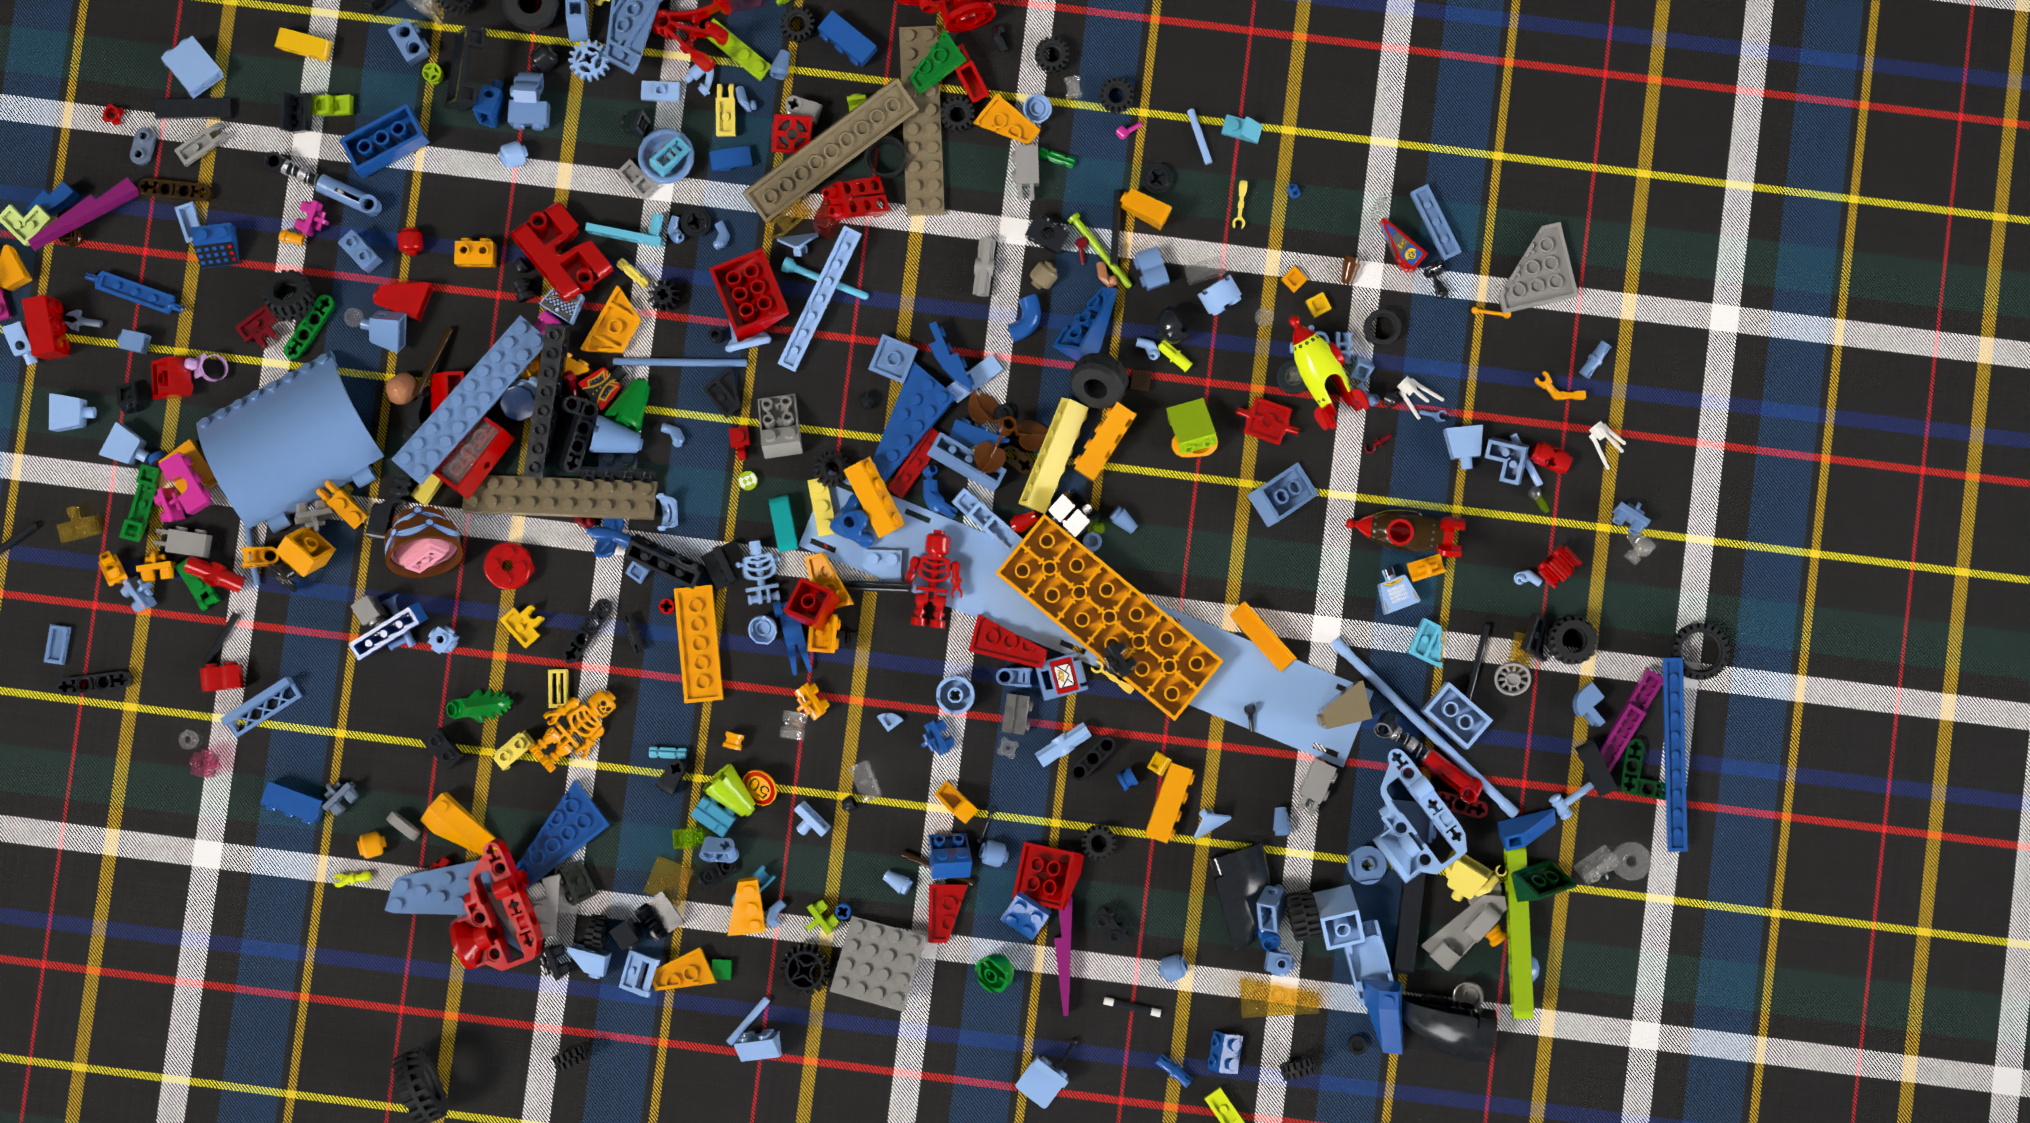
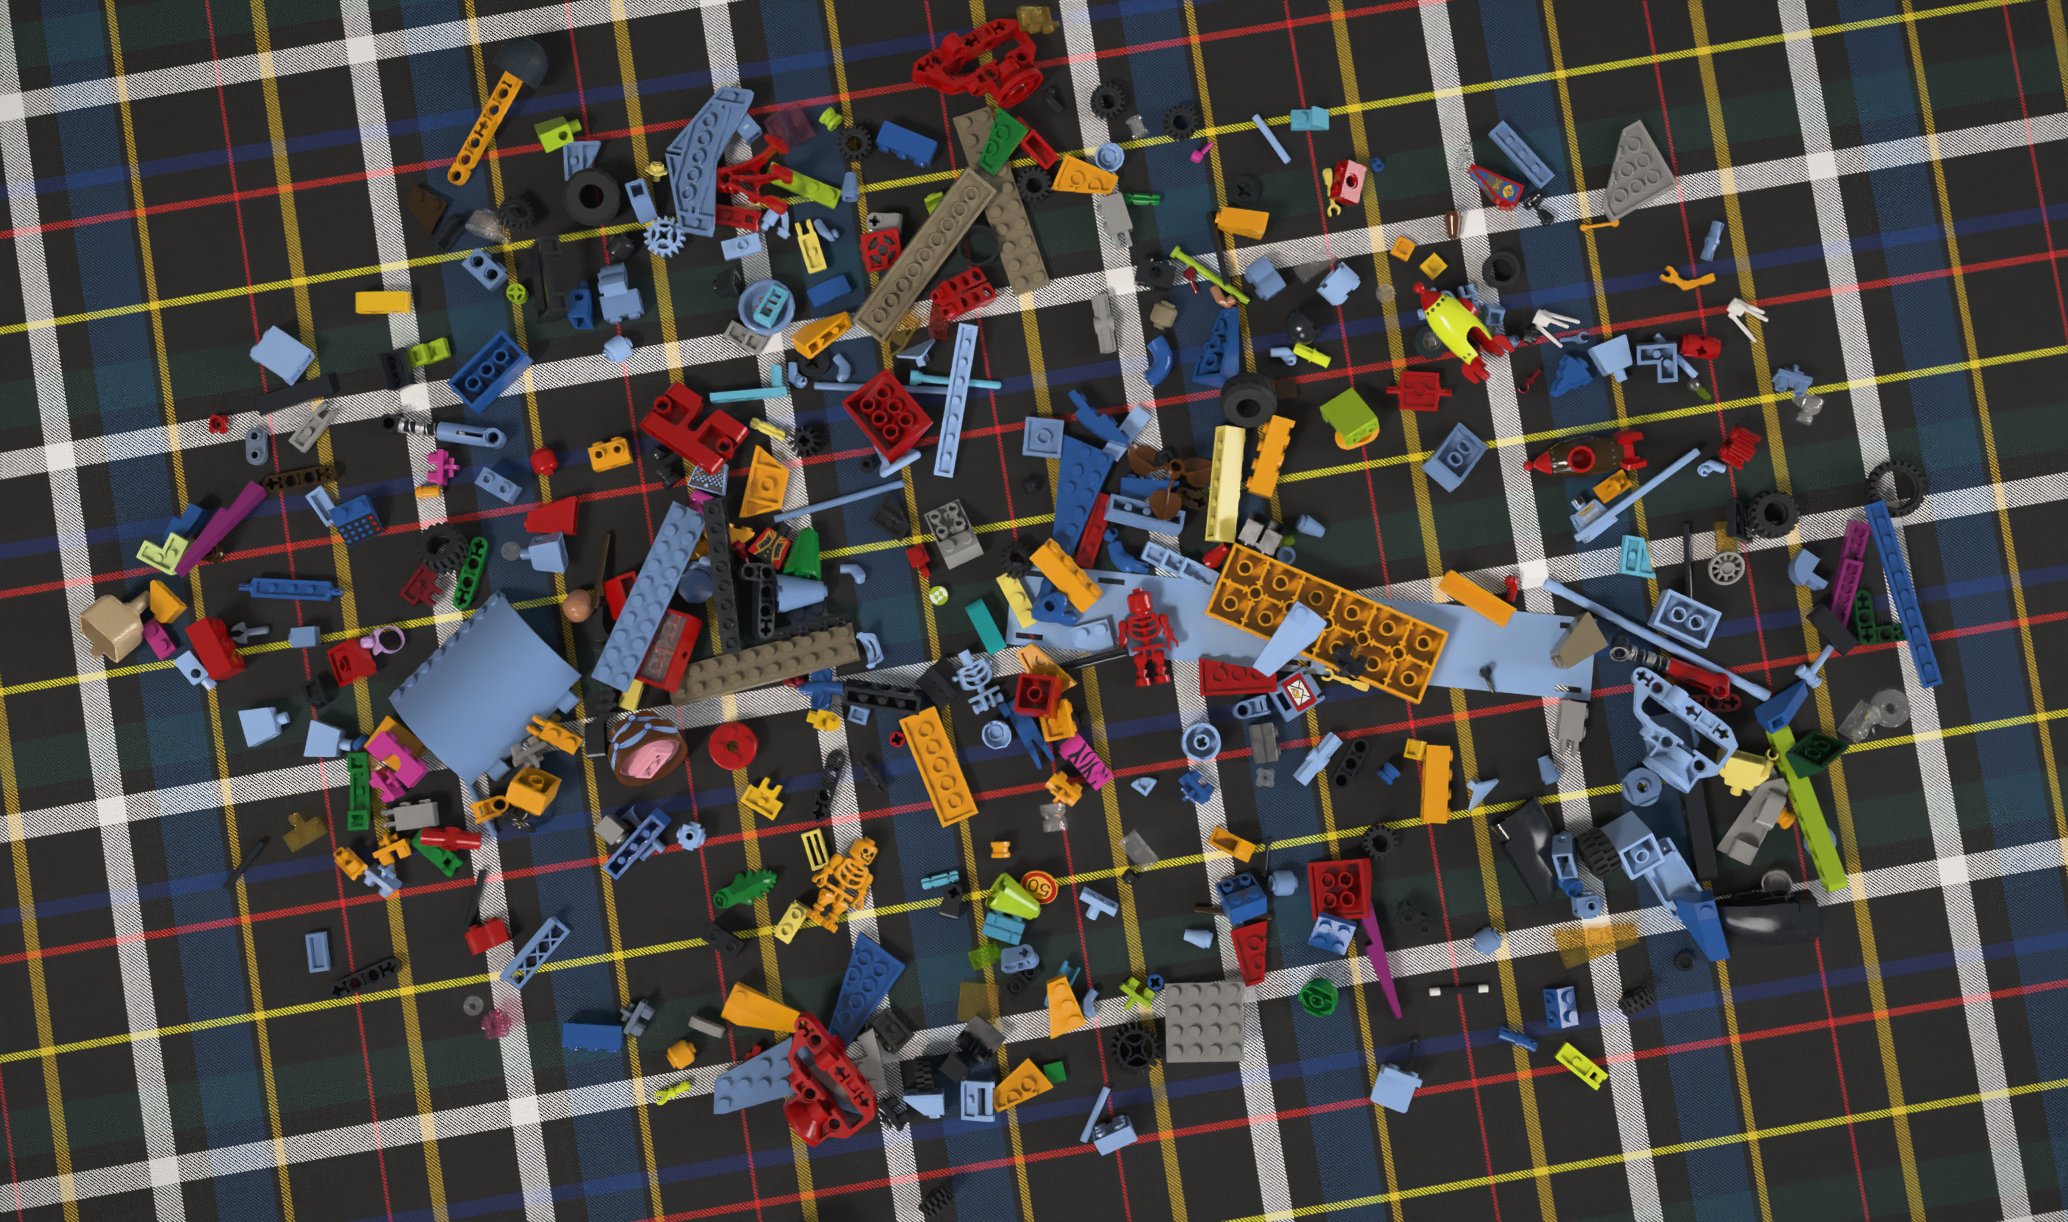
camera: 25 degrees left, 0 degrees up
(601, 567) = (824, 720): none -> yellow hips
(663, 62) = (737, 217): none -> red plate
(709, 197) = (818, 335): none -> light orange slope
(777, 274) = (854, 387): none -> medium blue piece
(840, 680) = (1085, 760): none -> dark pink door
(1072, 619) = (1293, 634): none -> light blue wedge
(1267, 195) = (1354, 175): none -> red brick
(1301, 636) = (1512, 582): none -> red arm
(1417, 449) = (1570, 375): none -> blue rock
(1445, 582) = (1636, 494): none -> light blue tile

